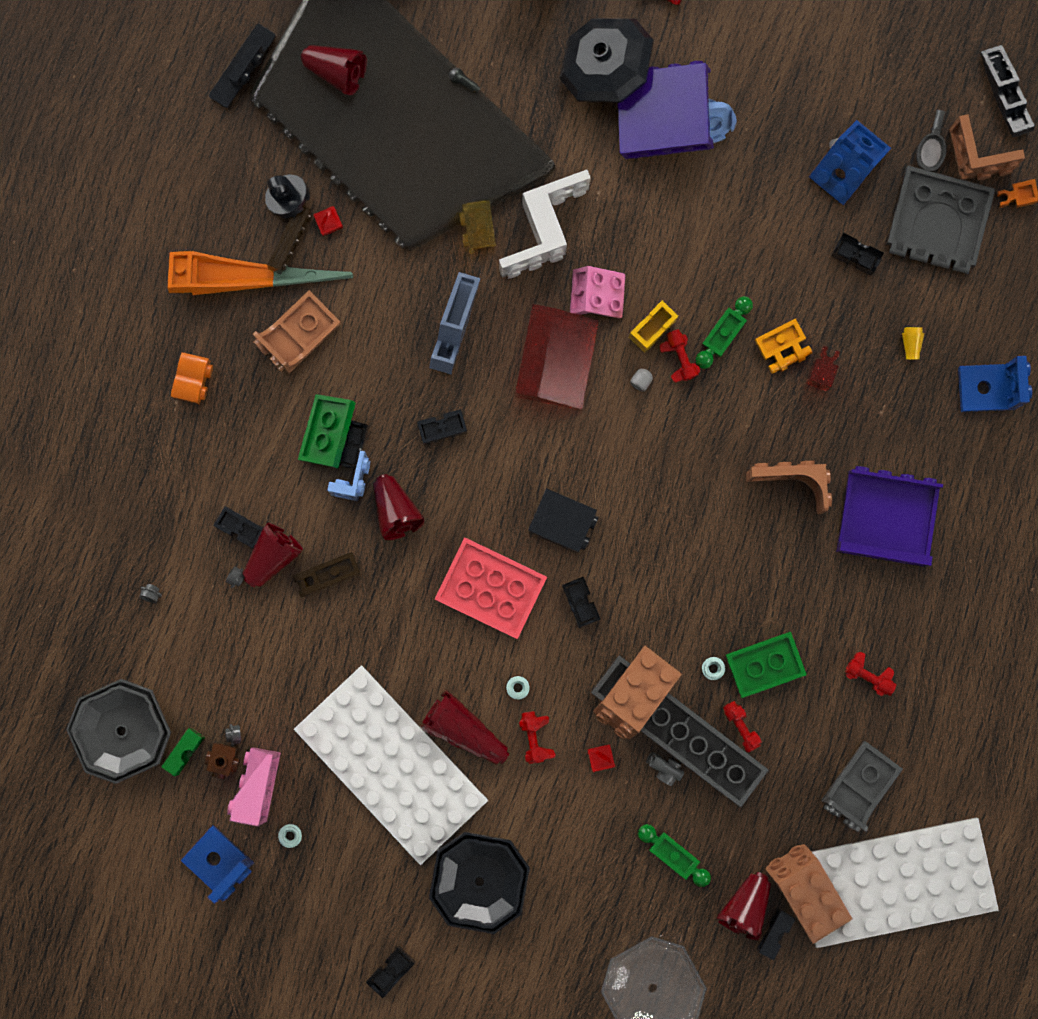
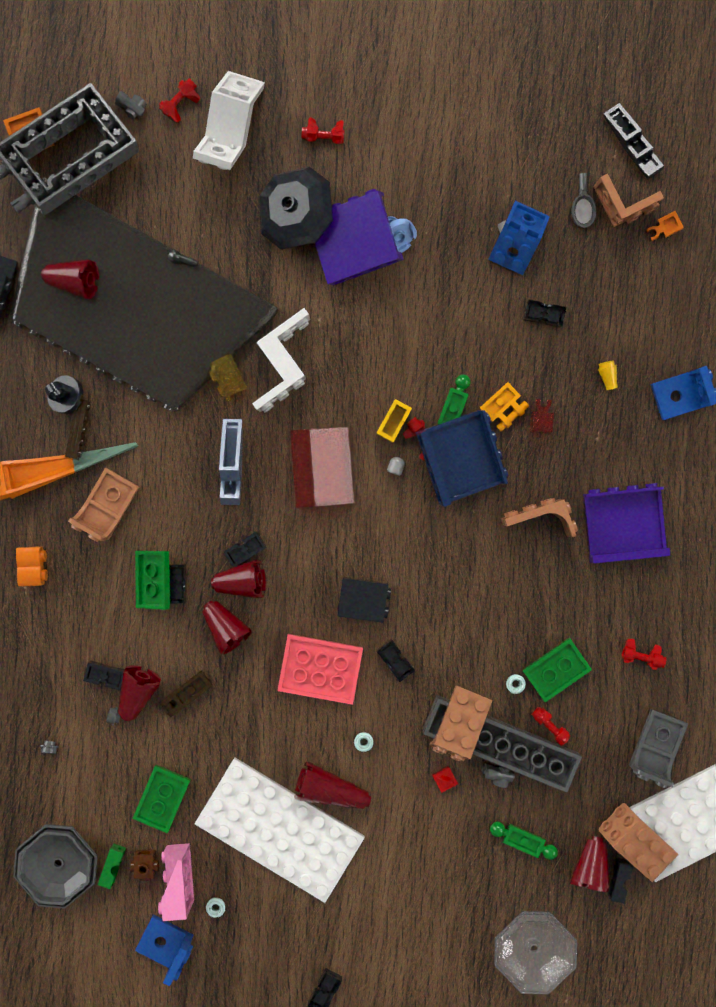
camera: 10 degrees left, 5 degrees up
(233, 734) = (147, 841): dark grey plate -> none
(263, 689) = (161, 798): none -> green plate
(328, 221) = (104, 405): red tile -> none
(343, 489) = (190, 618): light blue bracket -> none
(429, 460) = (242, 580): none -> dark red cone
(473, 906) = (372, 924): black rock -> none
(531, 724) = (382, 768): red piece -> none
(597, 292) = (340, 404): bright pink bracket -> none
(721, 388) = (462, 456): none -> dark blue panel
(939, 219) = (605, 265): dark grey hinge -> none

